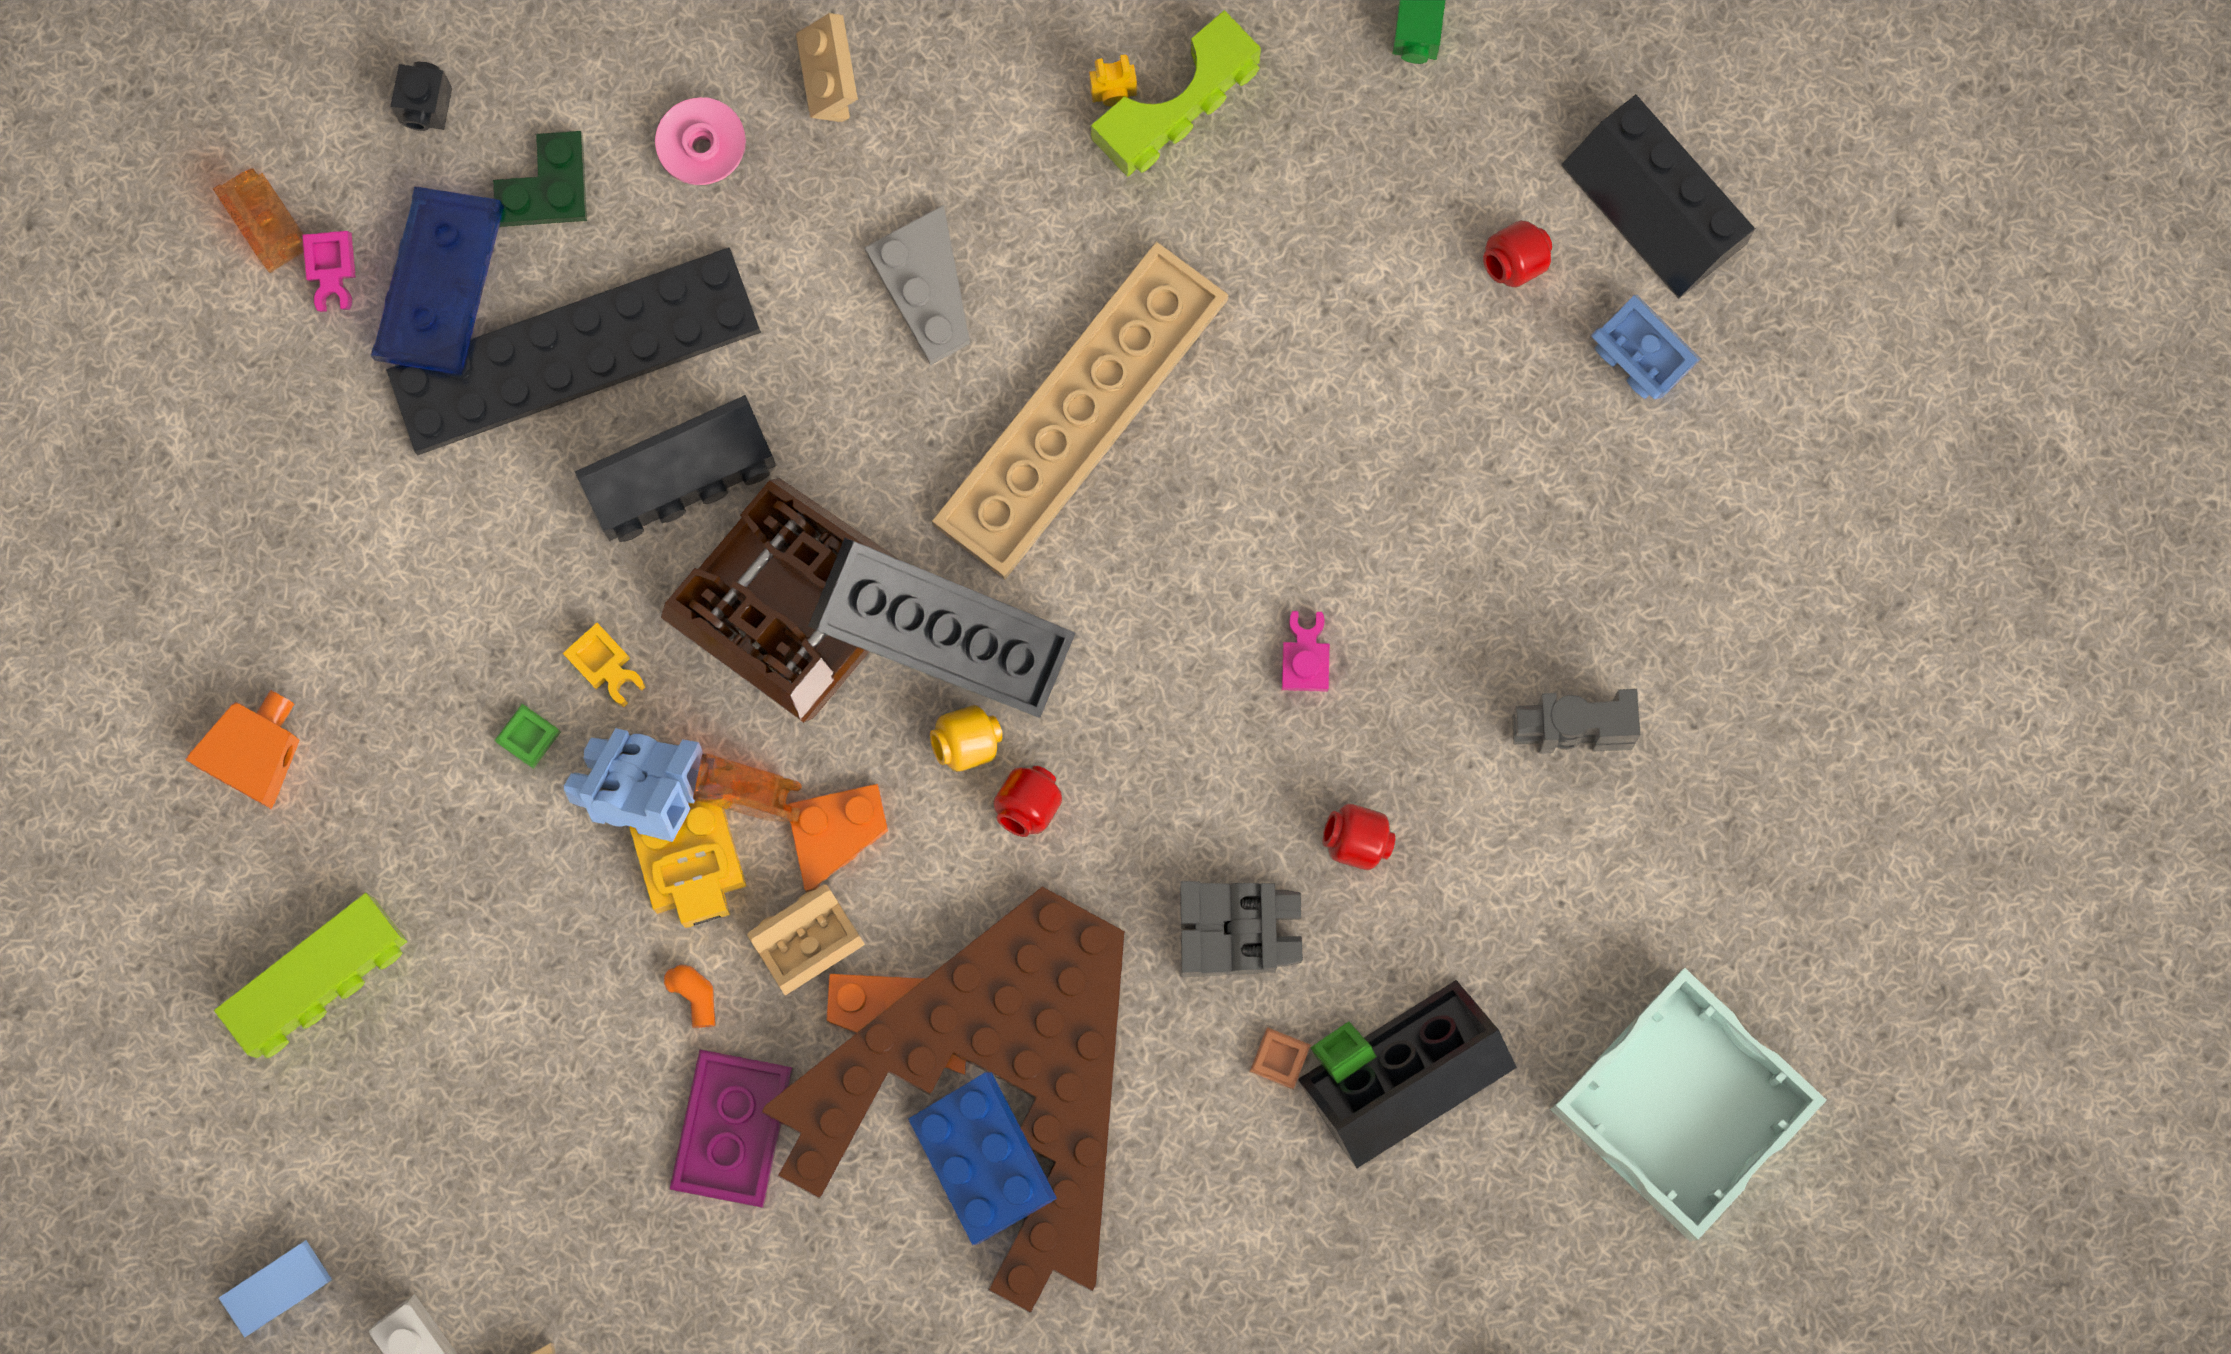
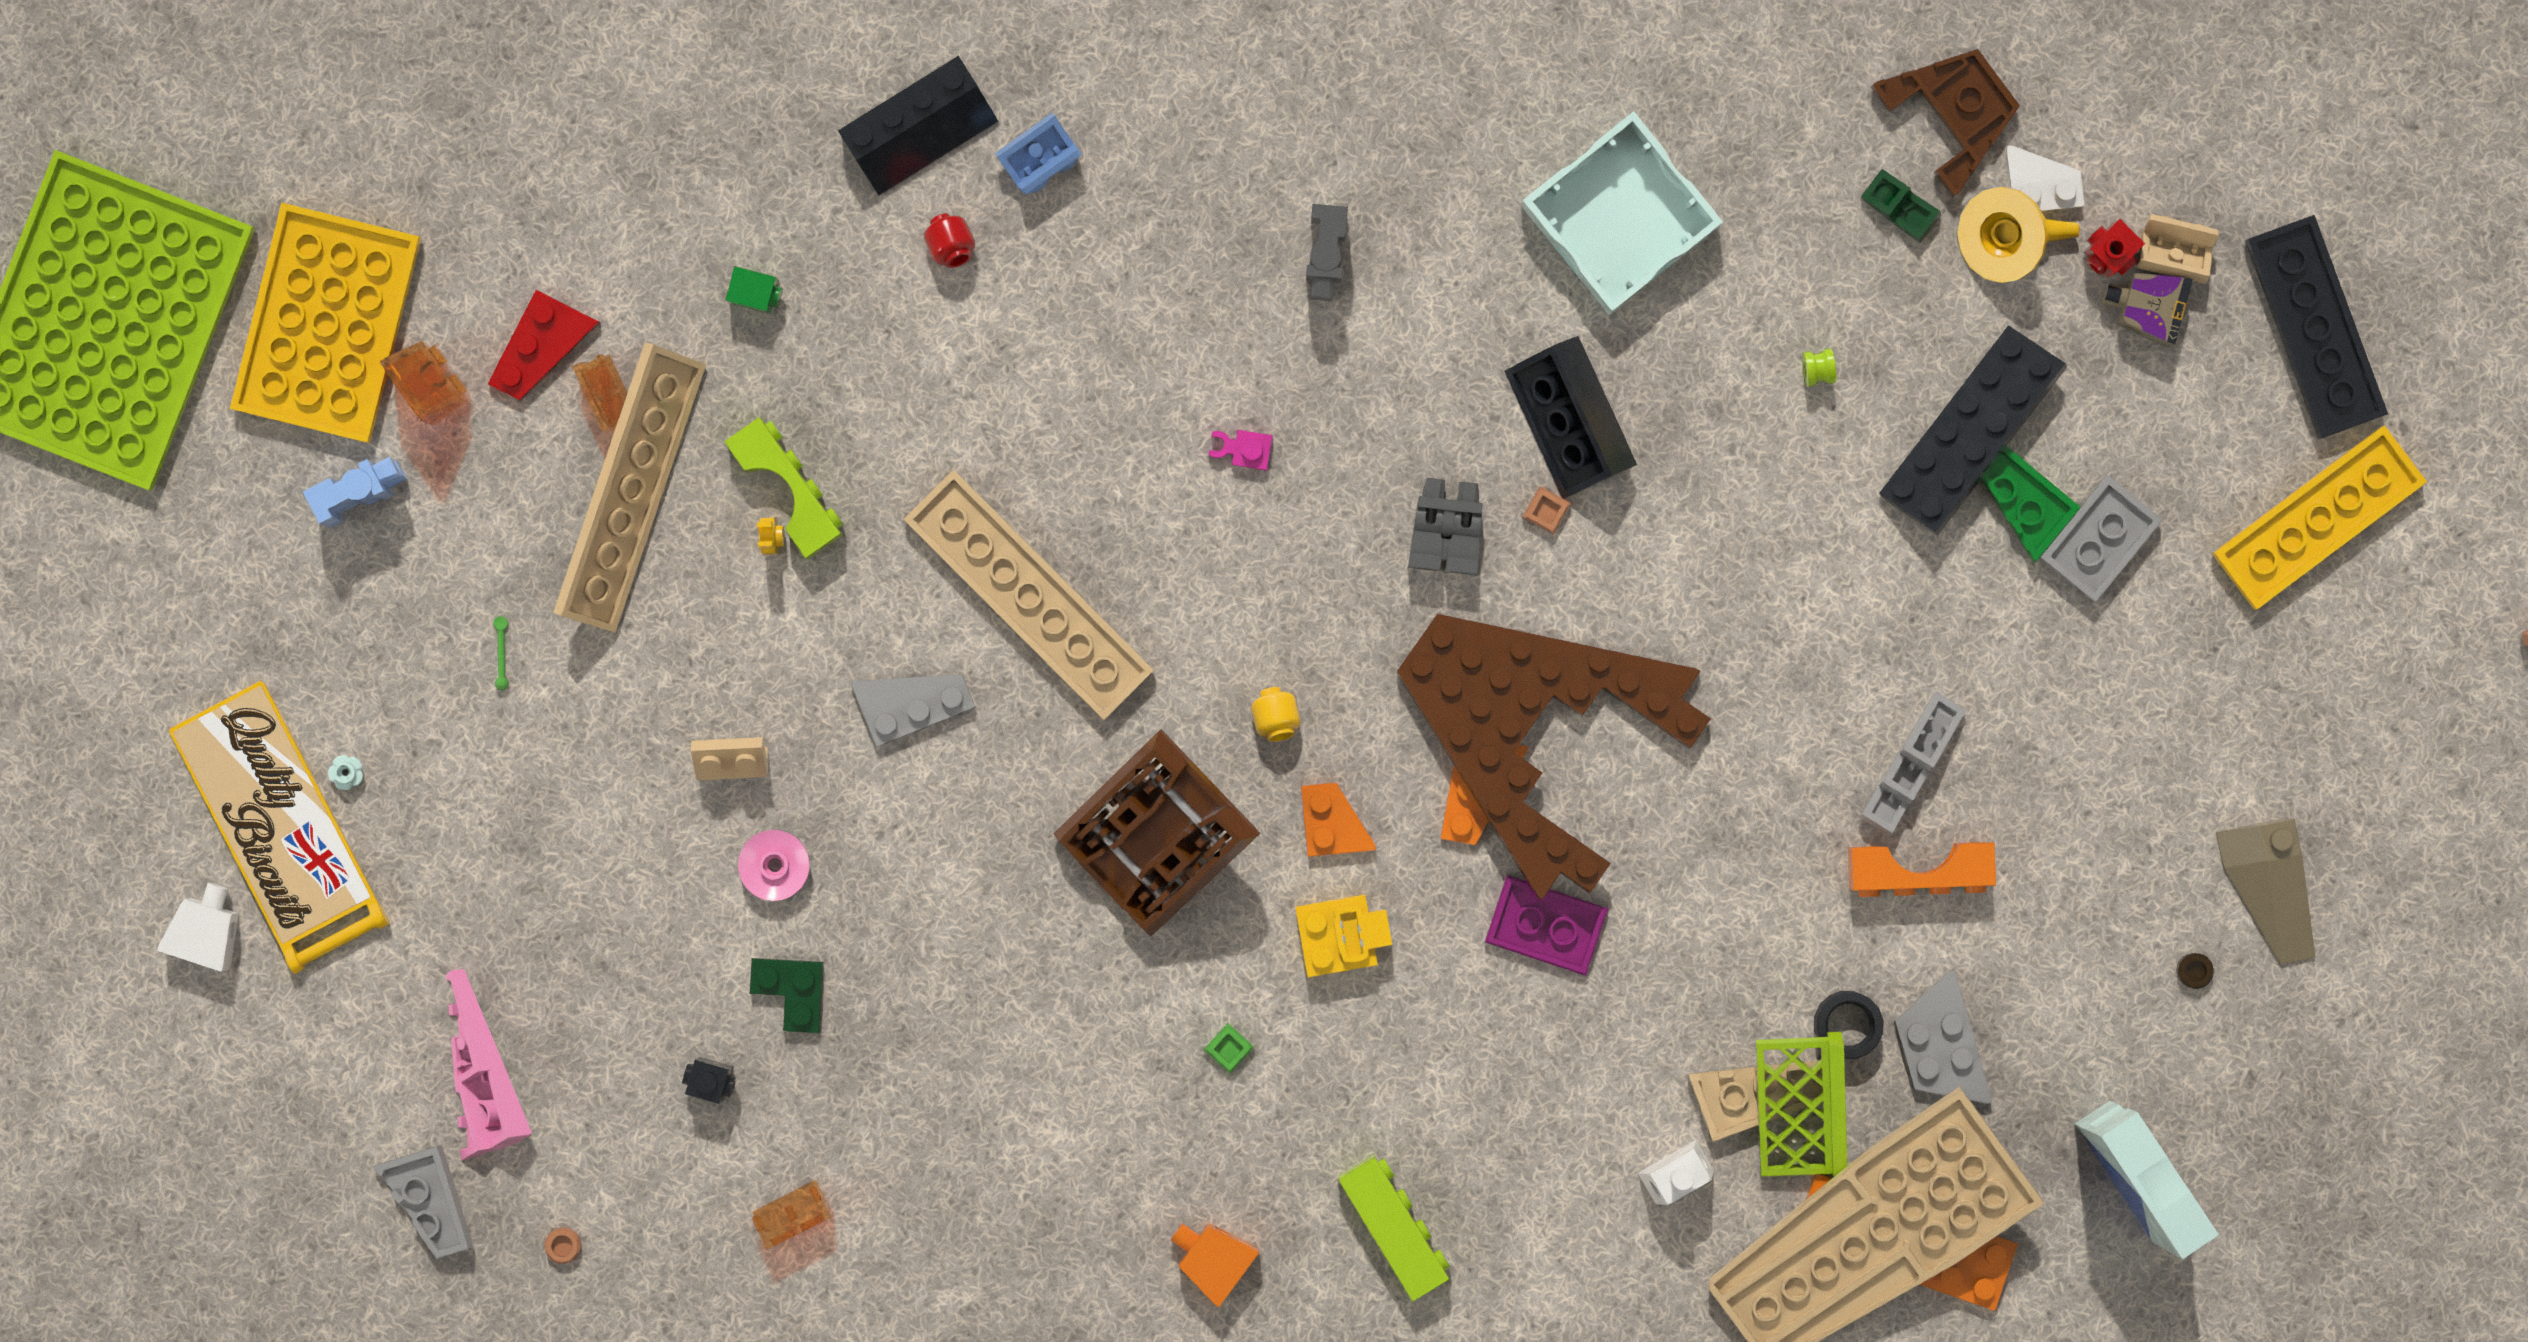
camera: 80 degrees left, 10 degrees up
(275, 1288) = (1622, 1274): light blue slope -> none
(329, 260) = (832, 1165): dark pink plate -> none
(438, 280) = (861, 1081): clear blue container -> none
(577, 351) = (929, 982): black plate -> none
(601, 660) = (1178, 987): yellow plate -> none
(637, 783) = (1281, 965): light blue hips -> none
(677, 470) = (1041, 911): black slope -> none
(696, 989) = (1439, 940): orange arm -> none
(745, 789) = (1295, 885): clear orange hinge -> none
(805, 939) = (1413, 853): tan bracket -> none
(941, 628) = (1200, 720): plate -> none
(982, 1158) = (1594, 740): blue plate -> none
(1027, 801) = (1329, 673): red head -> none
(1343, 1052) = (1549, 462): bright green tile -> none
(1358, 836) = (1389, 428): red head -> none

